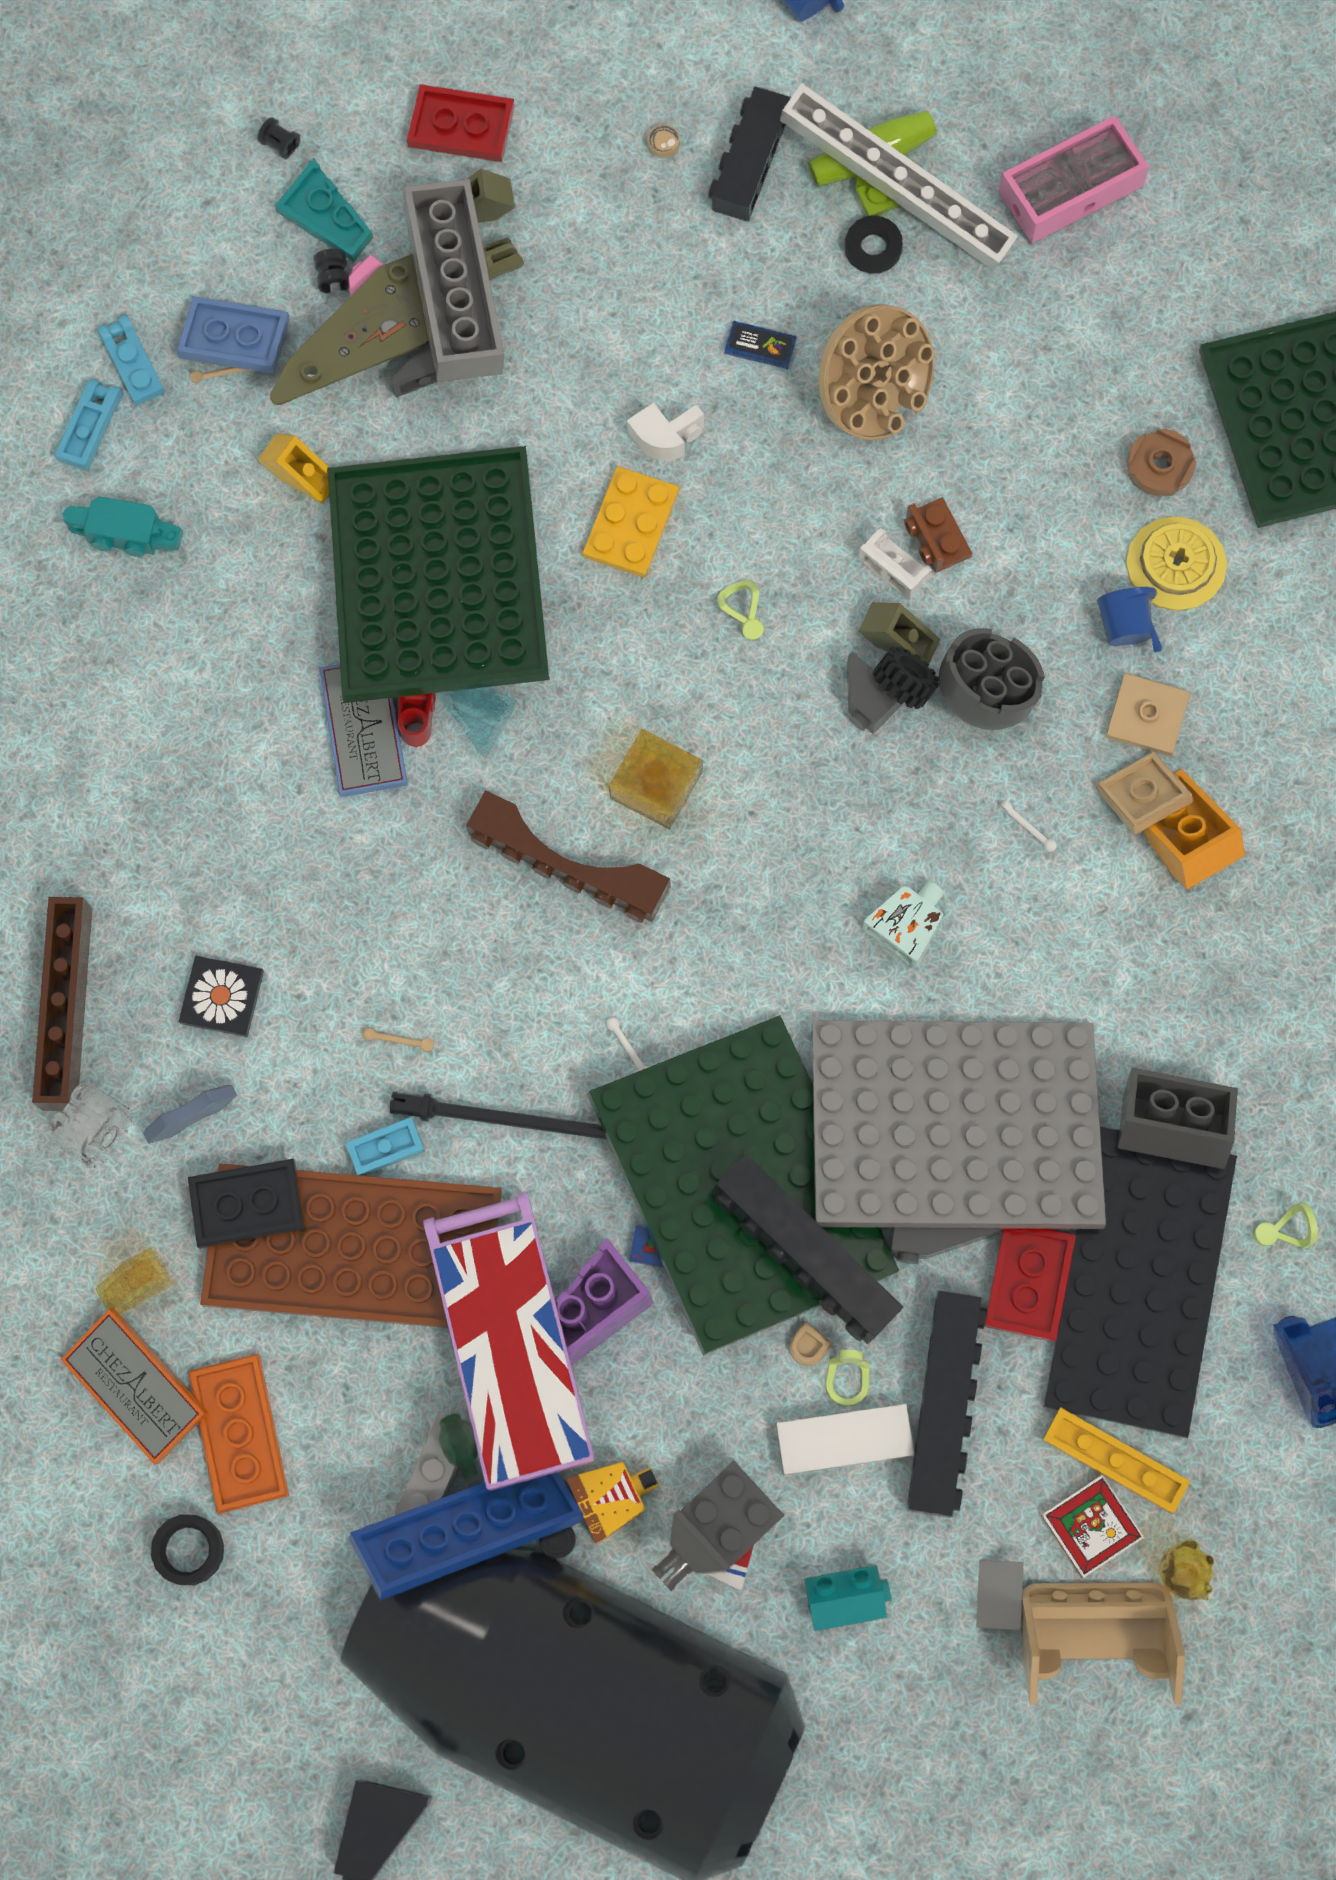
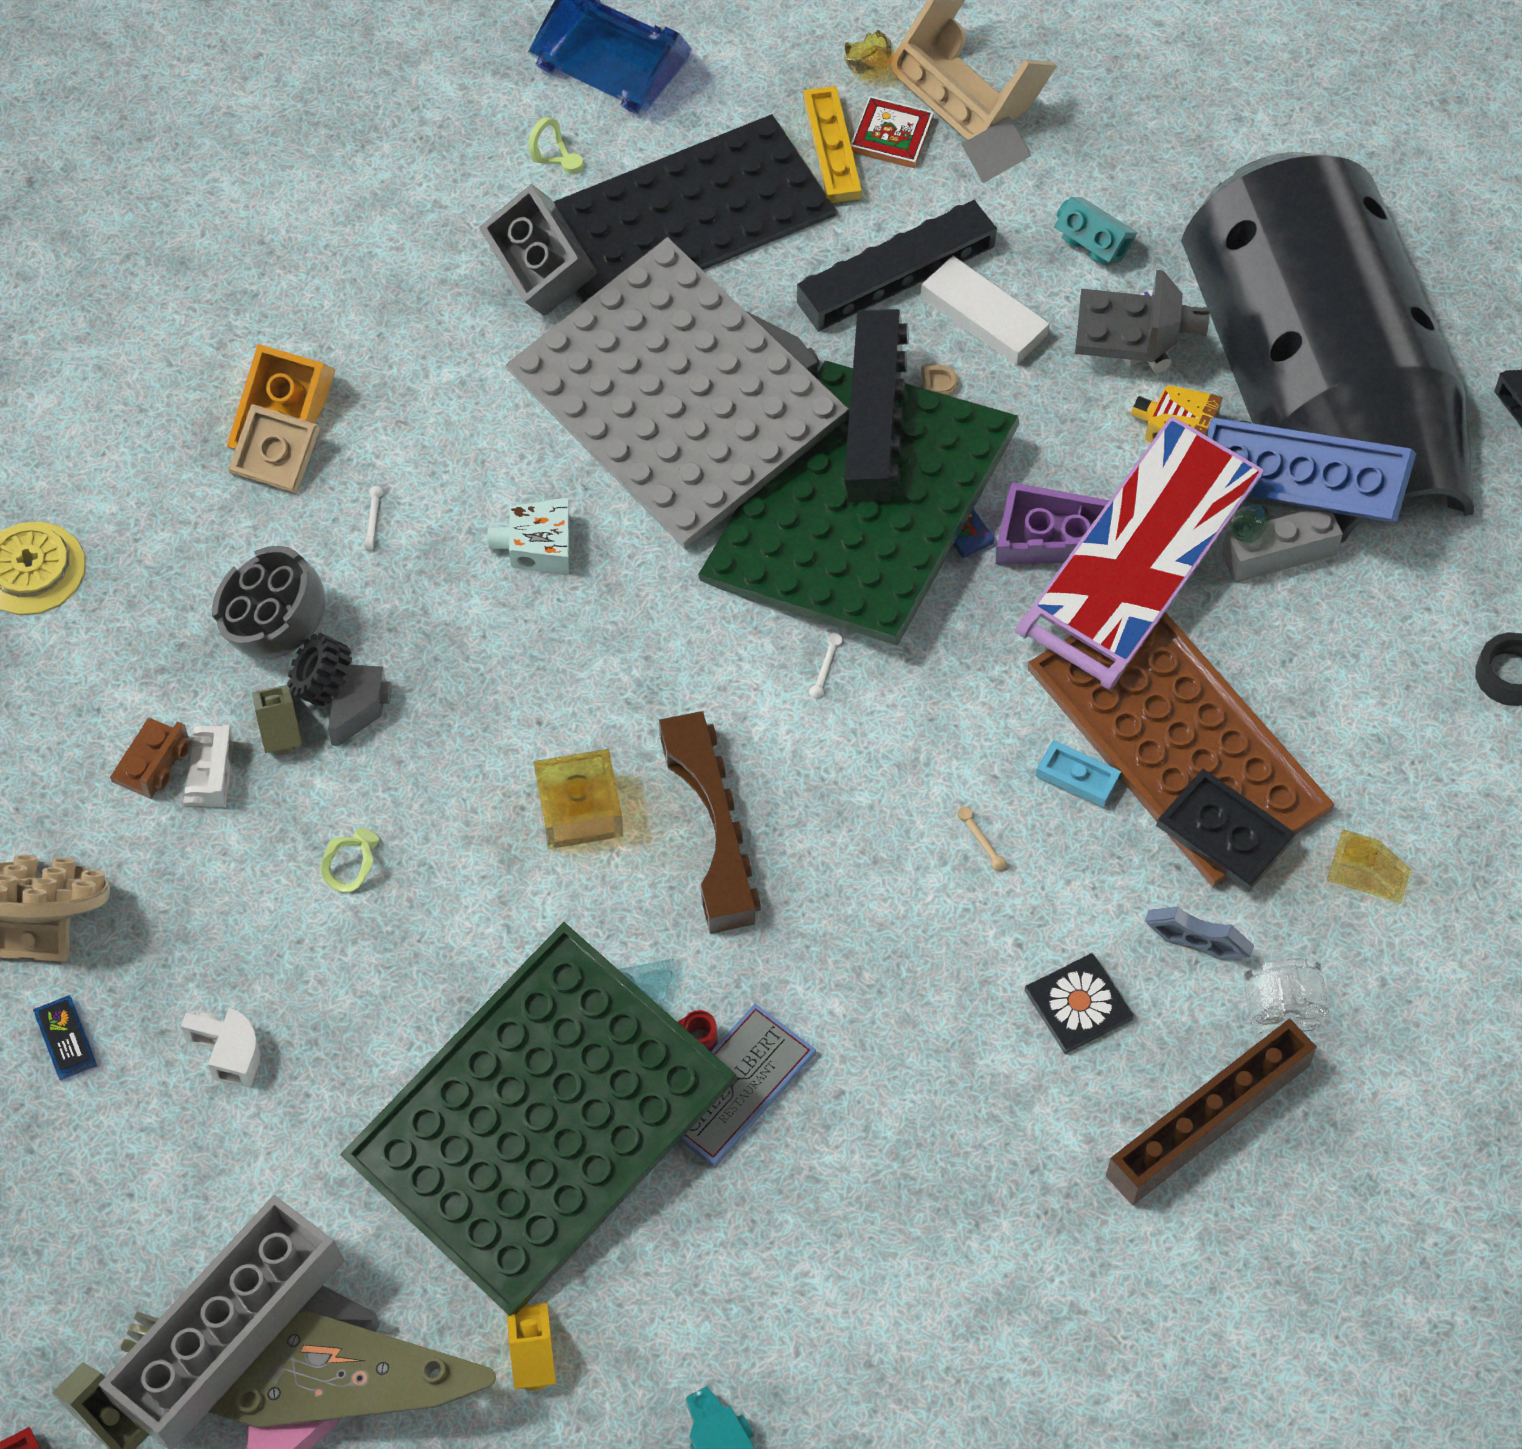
camera: 135 degrees left, 15 degrees down
(134, 1386) = (1441, 805): light grey tile -> none
(239, 1434) = (1395, 708): orange tile -> none
(428, 1107) = (1015, 767): black bar -> none
(631, 522) = (341, 1013): yellow plate -> none
(854, 1357) = (924, 336): yellowish green piece -> none
(1030, 1282) = (758, 270): red plate -> none
(1128, 616) = (119, 555): blue hat -> none
(1148, 714) = (196, 497): tan plate -> none

